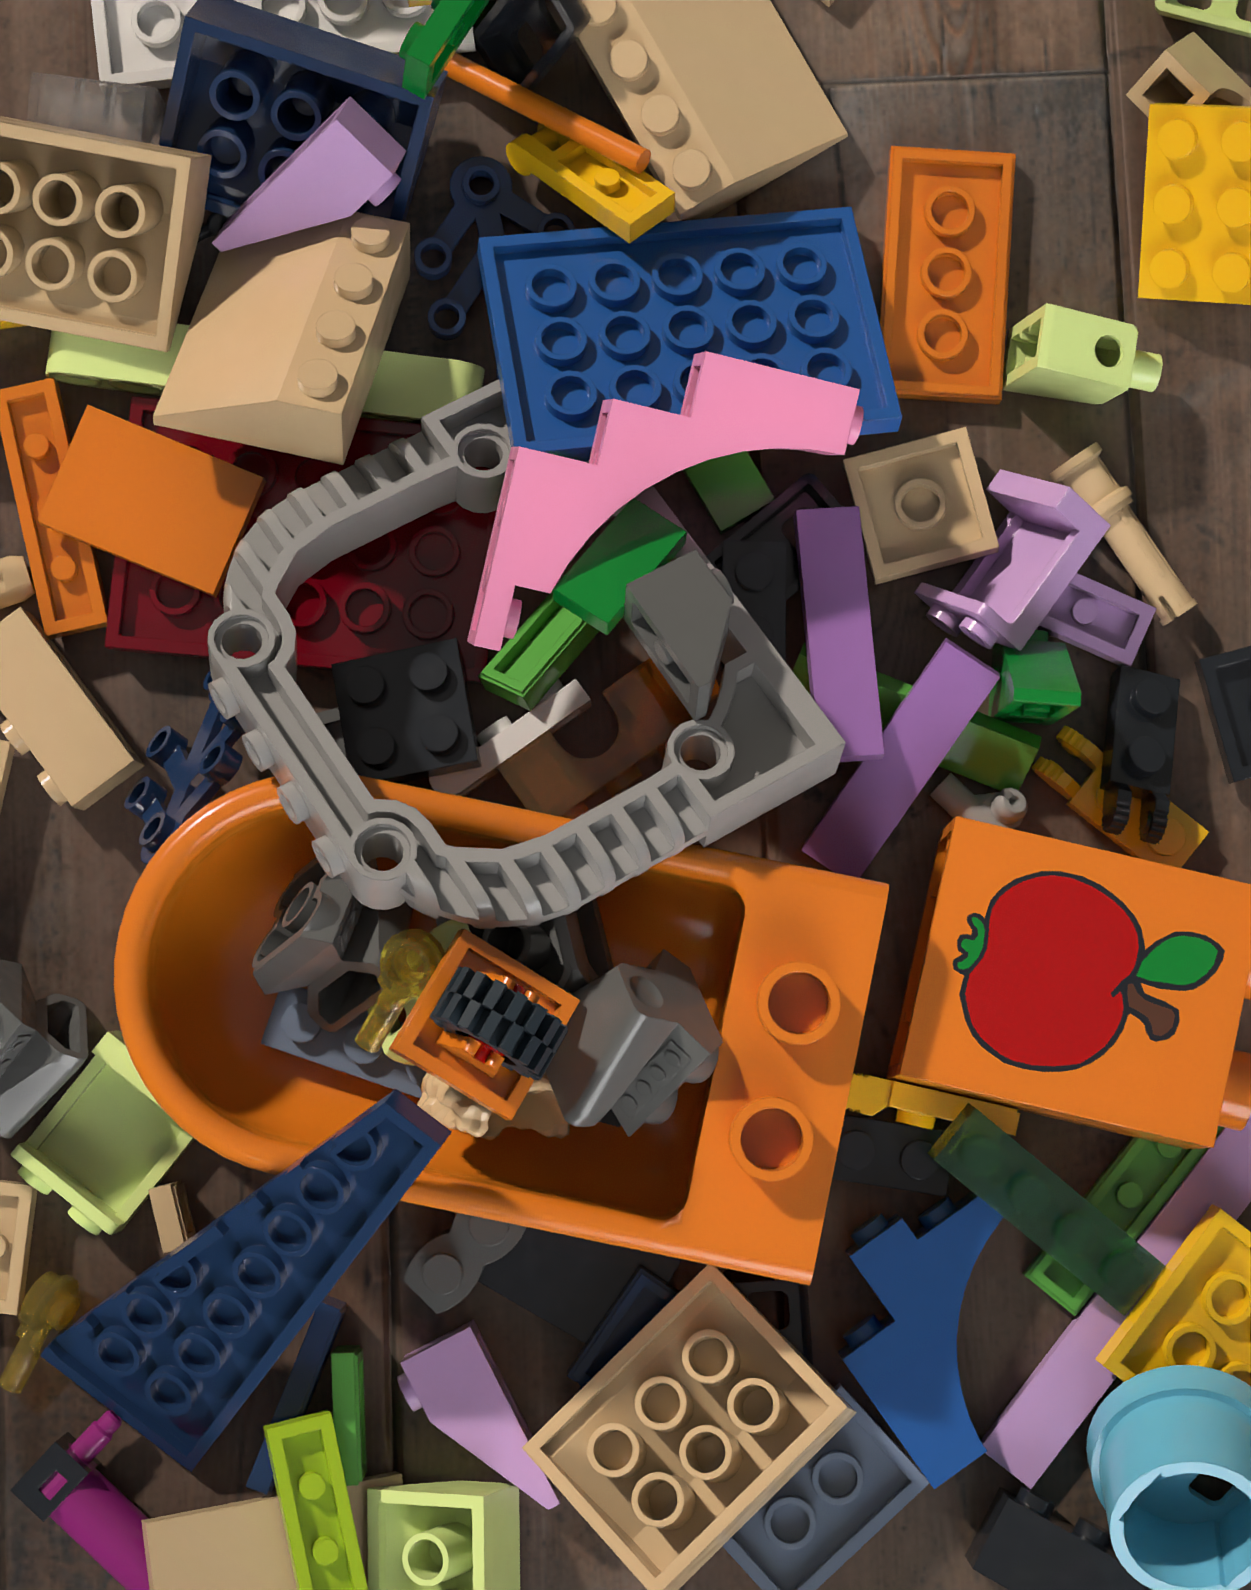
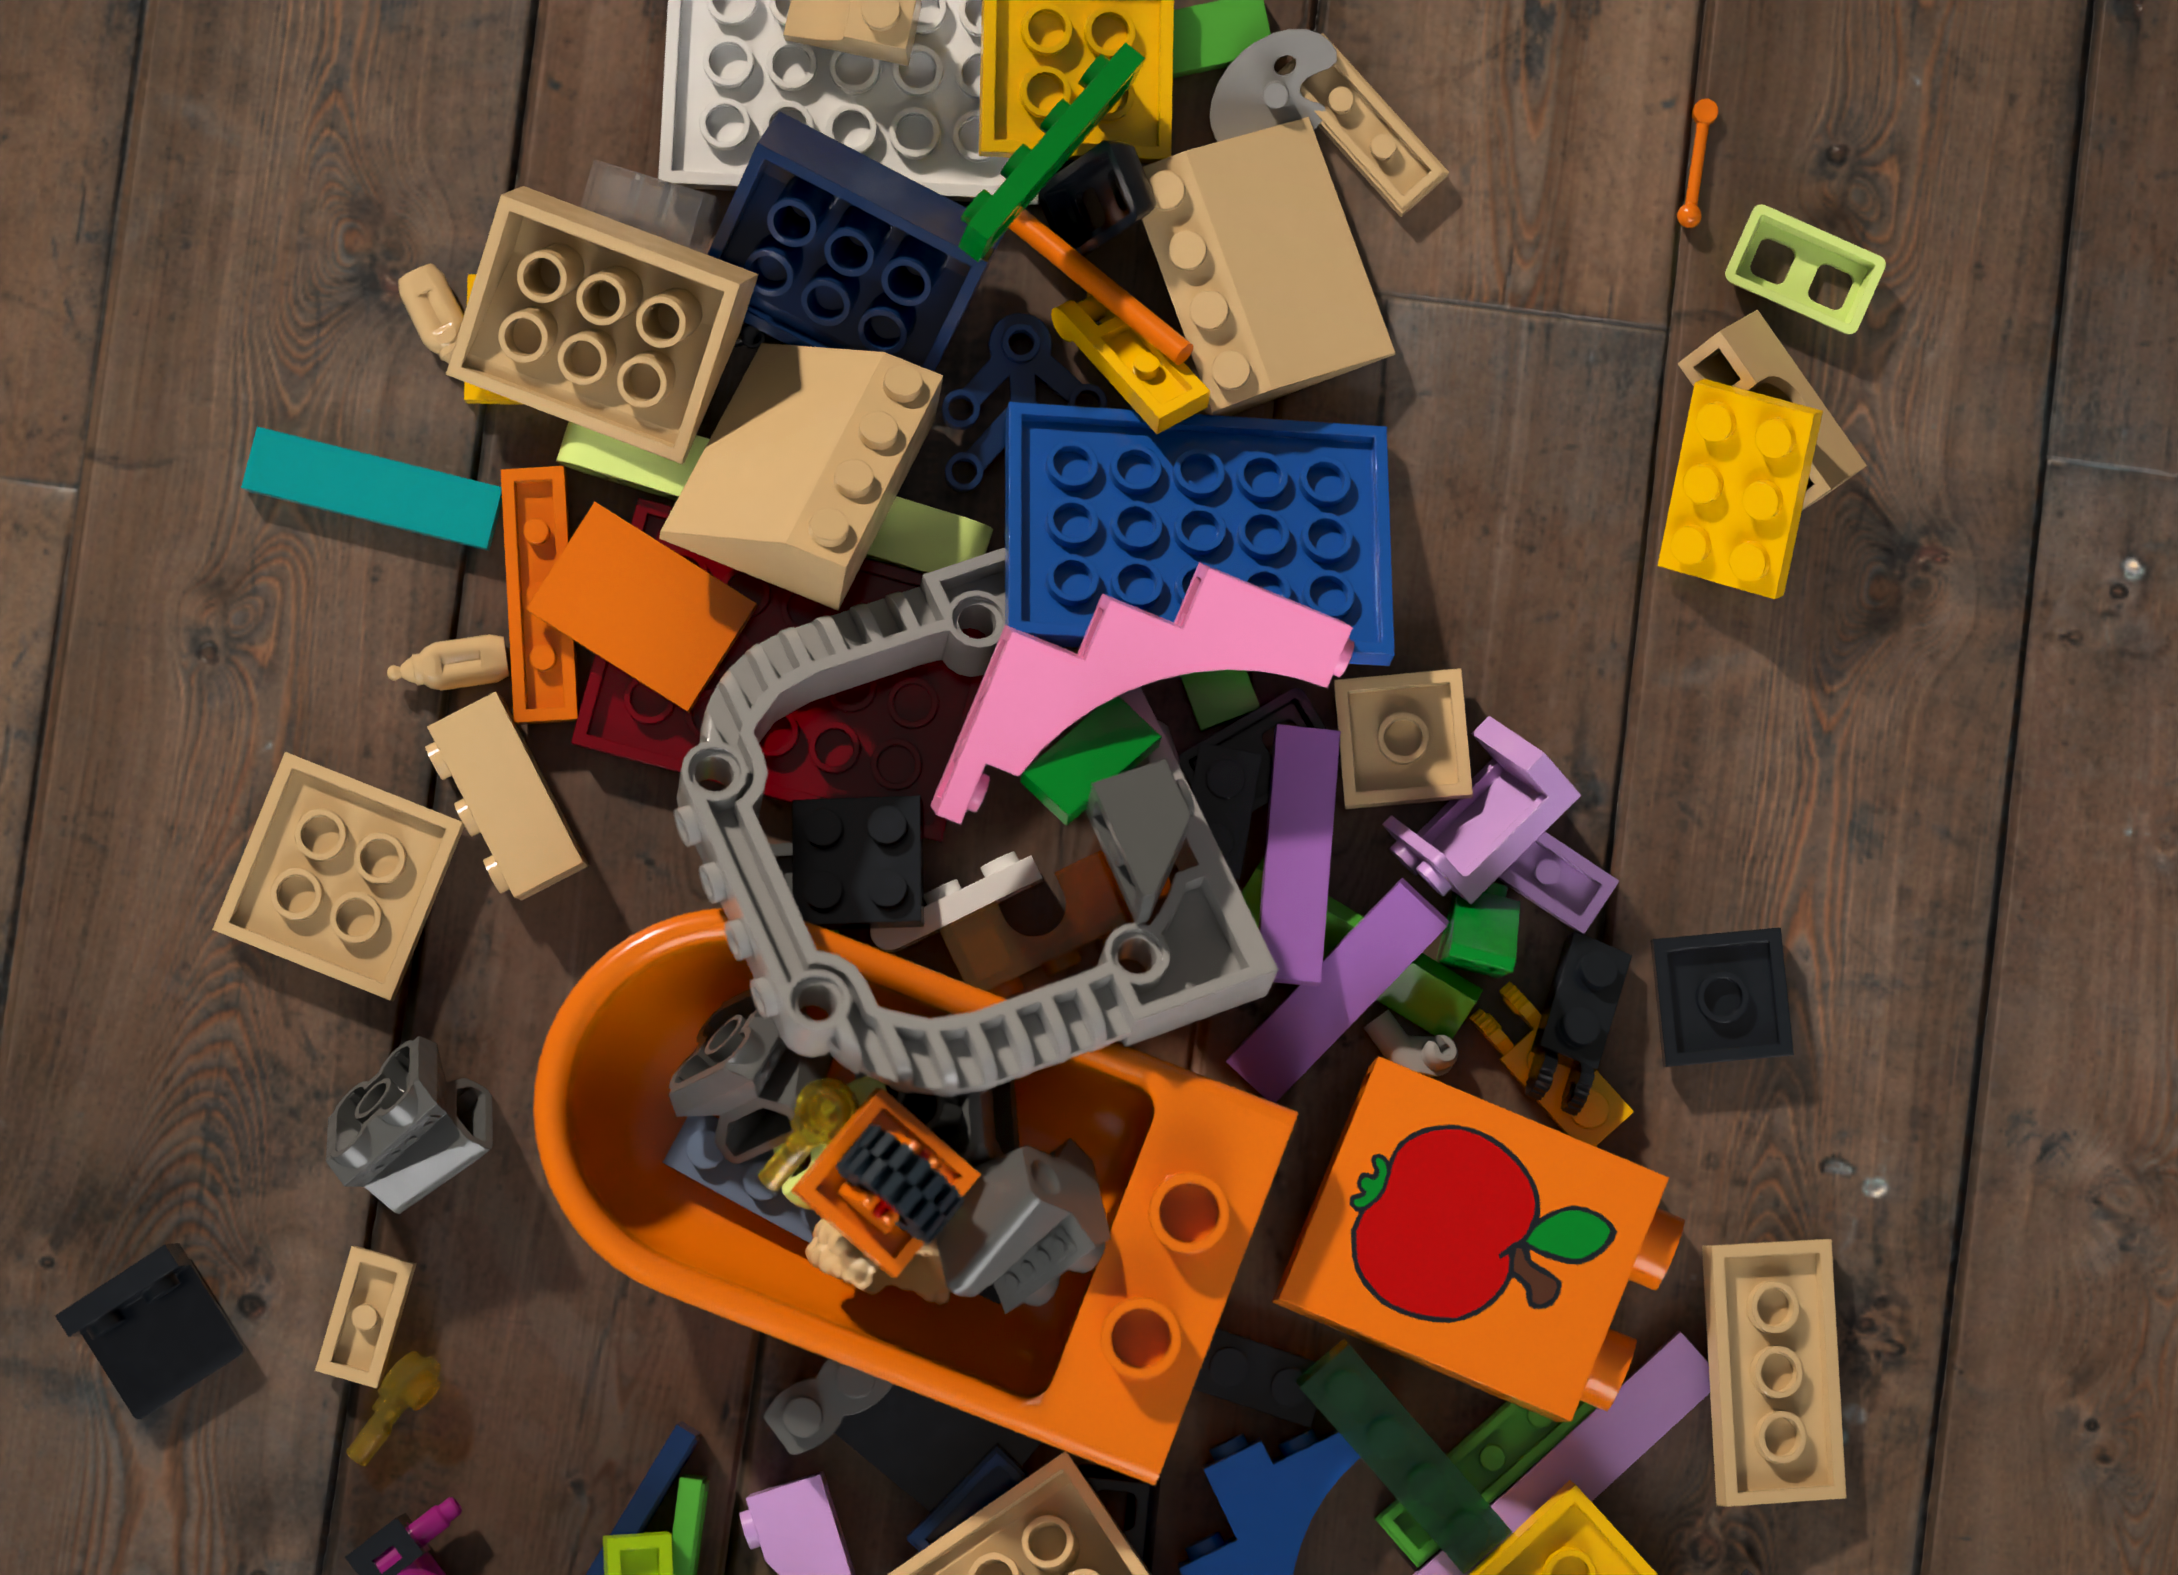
camera: 10 degrees right, 0 degrees up
(103, 1142) = (492, 1230): yellowish green panel -> none
(172, 1214) = (545, 1317): tan tile -> none
(193, 776) = (657, 874): dark blue plant -> none
(217, 1312) = (573, 1420): dark blue wing -> none
(321, 181) = (860, 322): lavender slope -> none
(537, 654) = (997, 829): bright green tile -> none
(921, 1105) = (1296, 1332): yellow hinge -> none
(947, 272) = (1470, 508): orange tile -> none
(1076, 357) = (1562, 613): yellowish green torso -> none
(1126, 535) = (1590, 773): tan pin -> none

